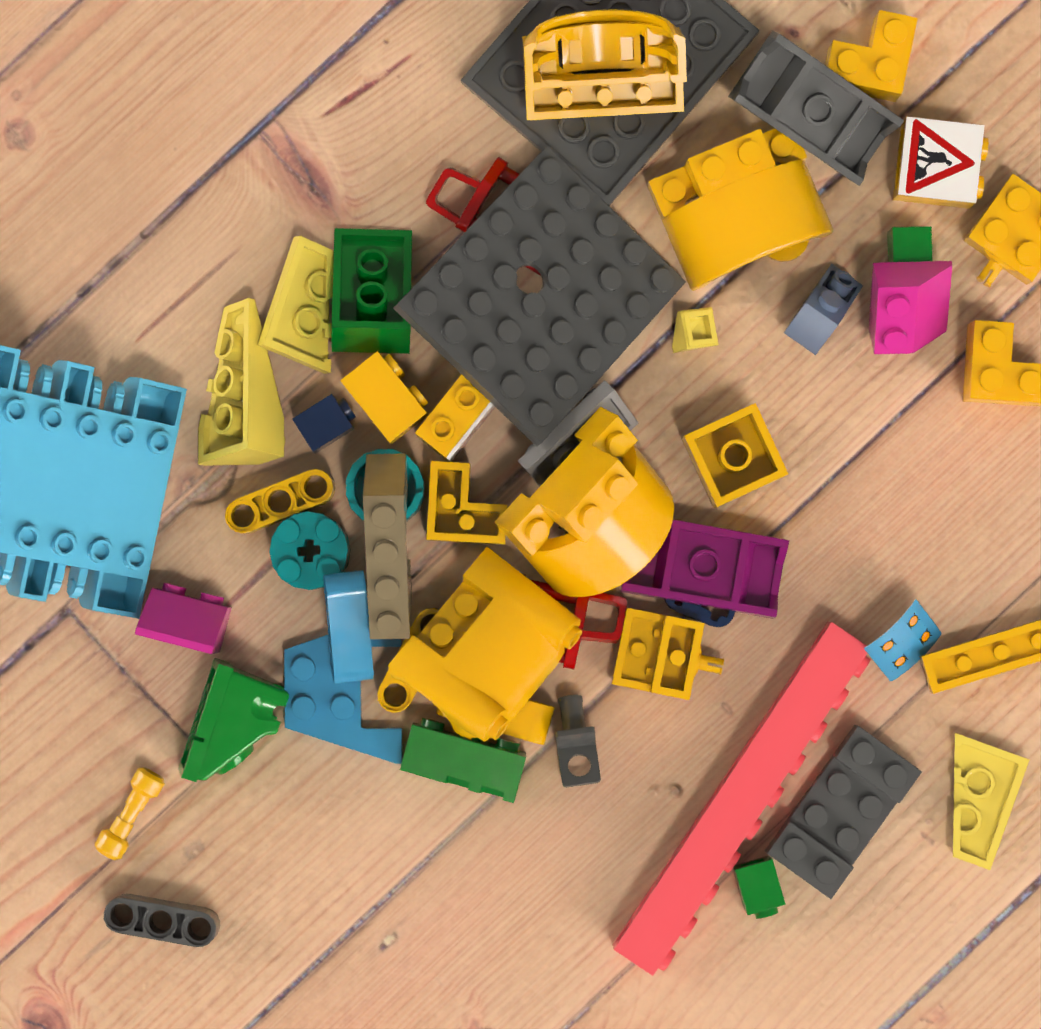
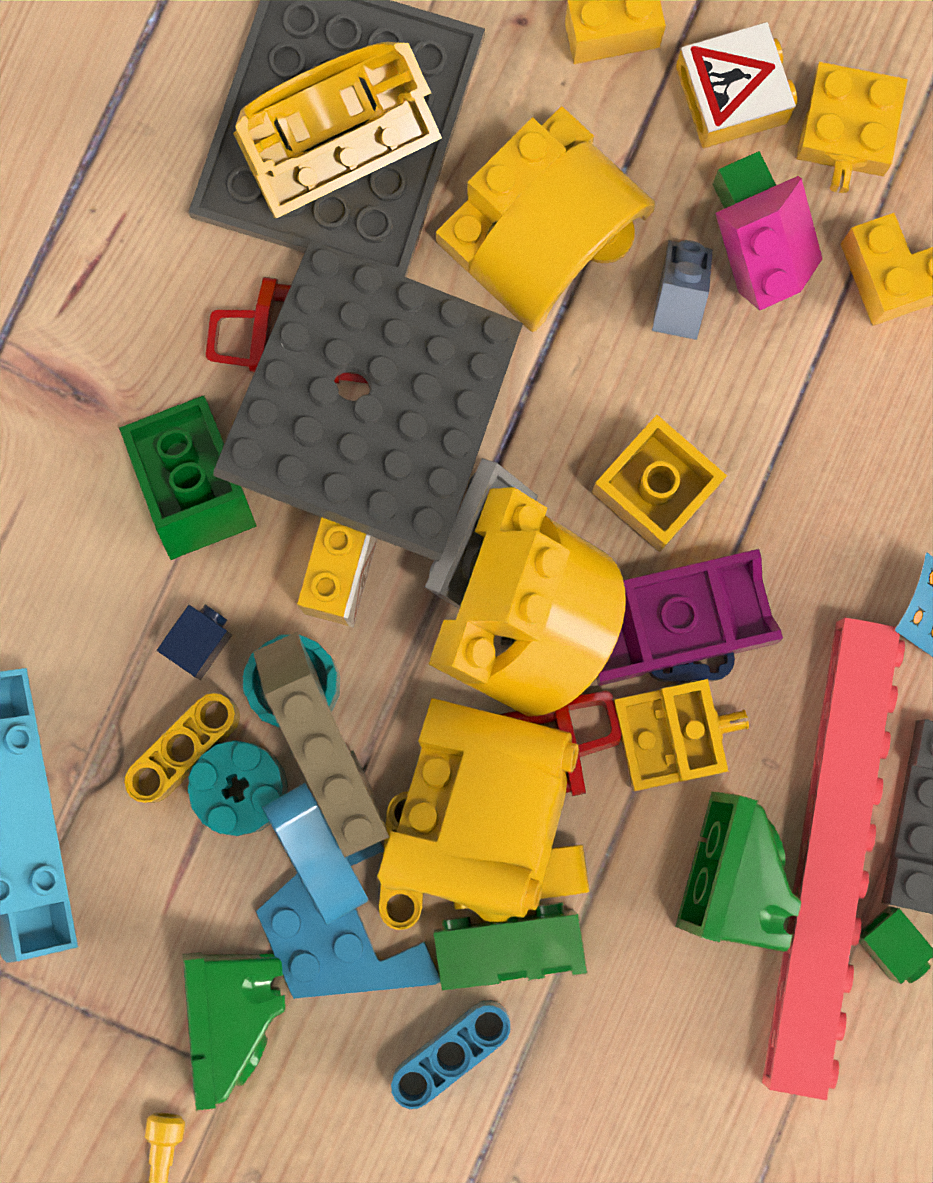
camera: 20 degrees left, 5 degrees down
(184, 619) = (128, 927): dark pink slope -> none
(244, 407) = (101, 661): light yellow wedge -> none
(300, 307) = (116, 528): light yellow wing -> none
(370, 832) = (436, 1073): none -> dark azure beam
(385, 397) = (246, 581): yellow brick -> none
(450, 513) = (383, 681): yellow brick -> none
(576, 740) = (623, 871): dark grey bracket -> none
(660, 784) = (738, 878): none -> green piece
(694, 330) = (554, 371): light yellow slope -> none
(814, 107) = (579, 76): dark grey piece -> none

